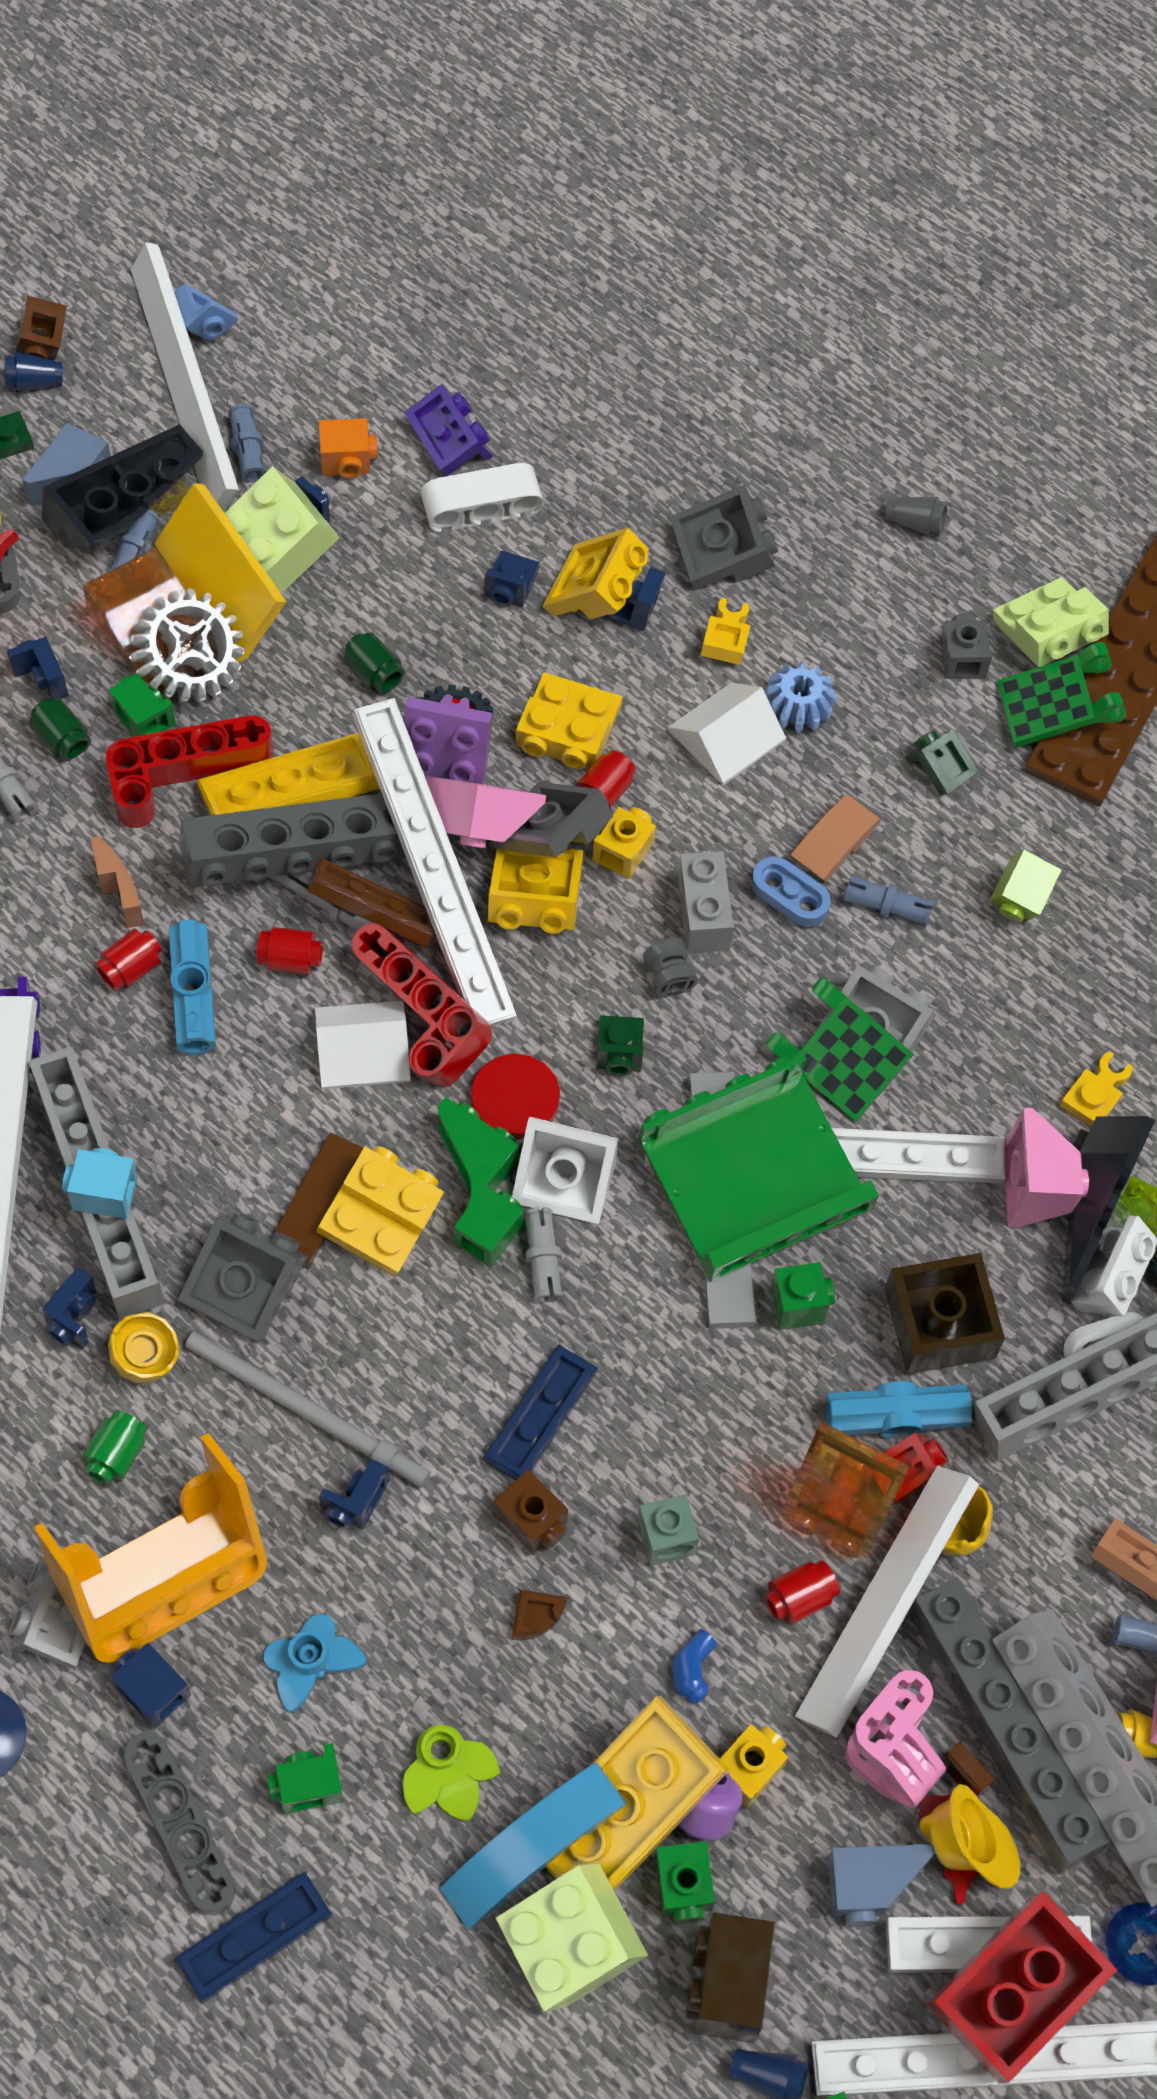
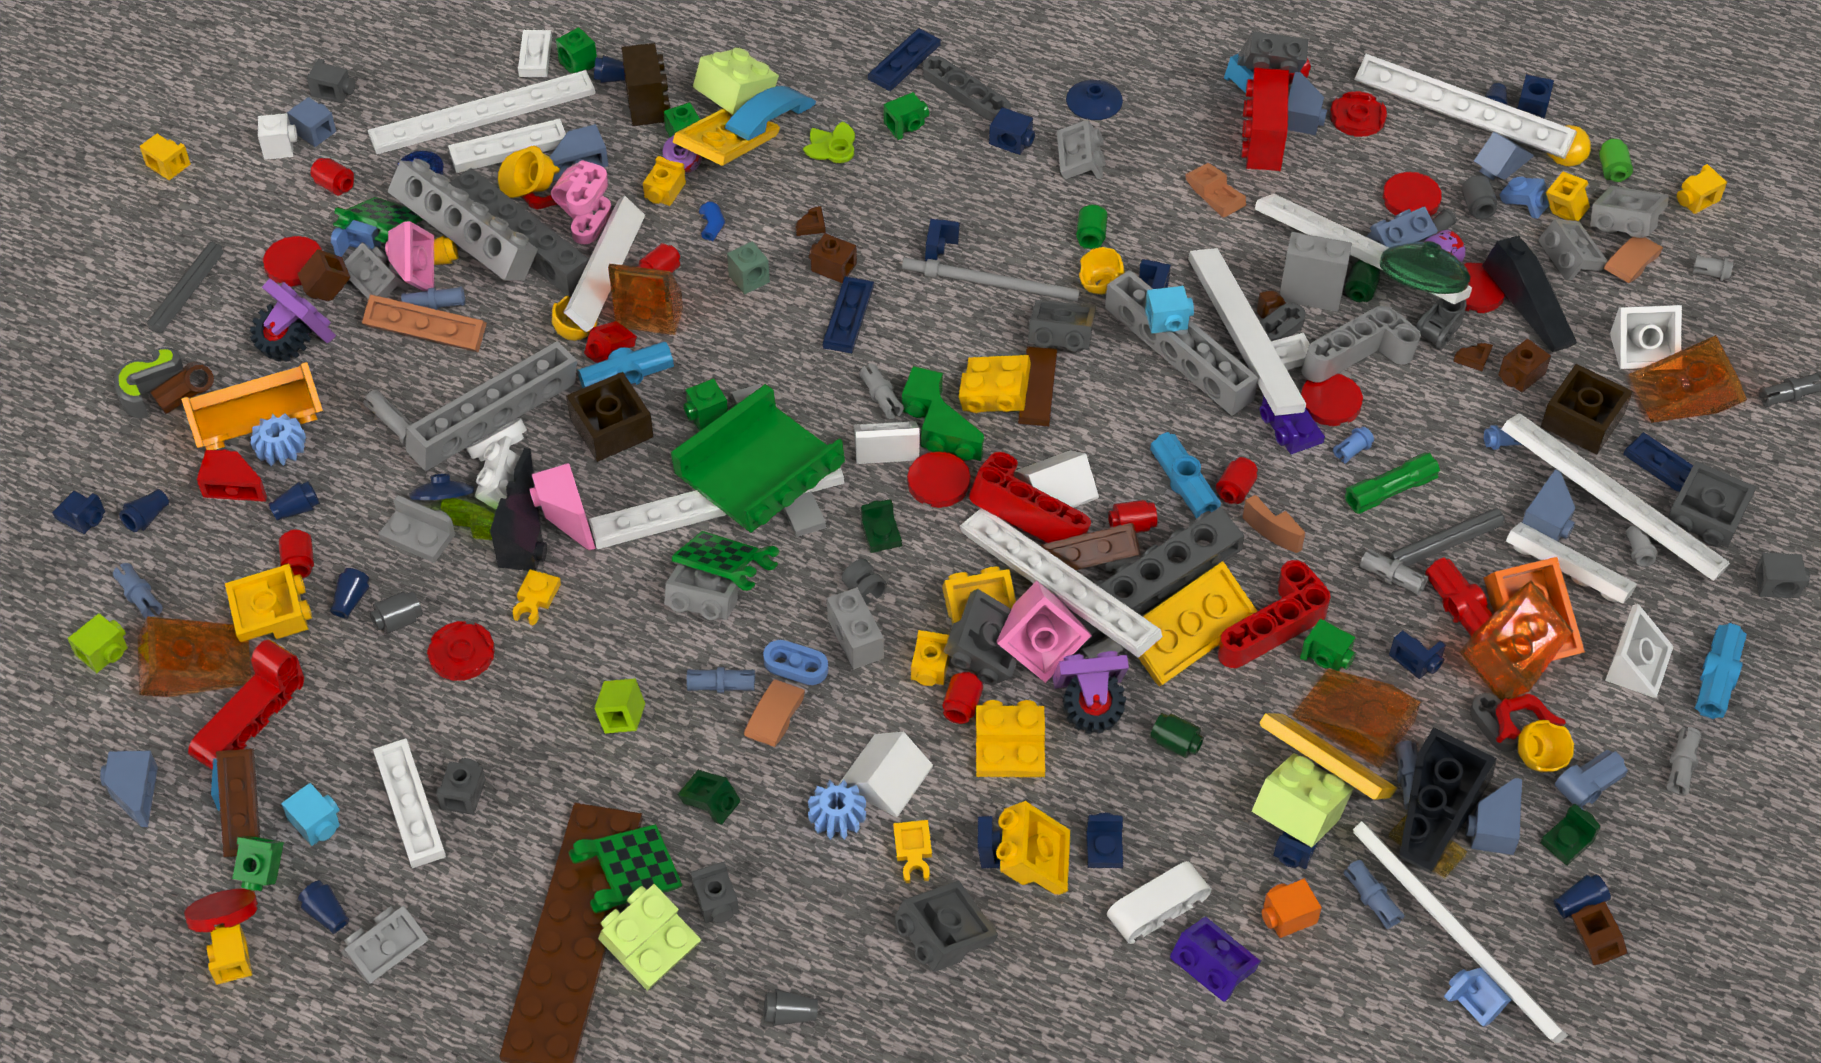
camera: 165 degrees right, 10 degrees down
(59, 729) = (1377, 617): dark green brick -> none
(167, 1571) = (1042, 161): light orange windscreen -> none
(176, 634) = (1318, 688): white gear -> none
(309, 1657) = (930, 173): dark azure animal -> none
(967, 1770) = (538, 207): reddish brown tile -> none
(1021, 1987) = (486, 110): red brick -> none

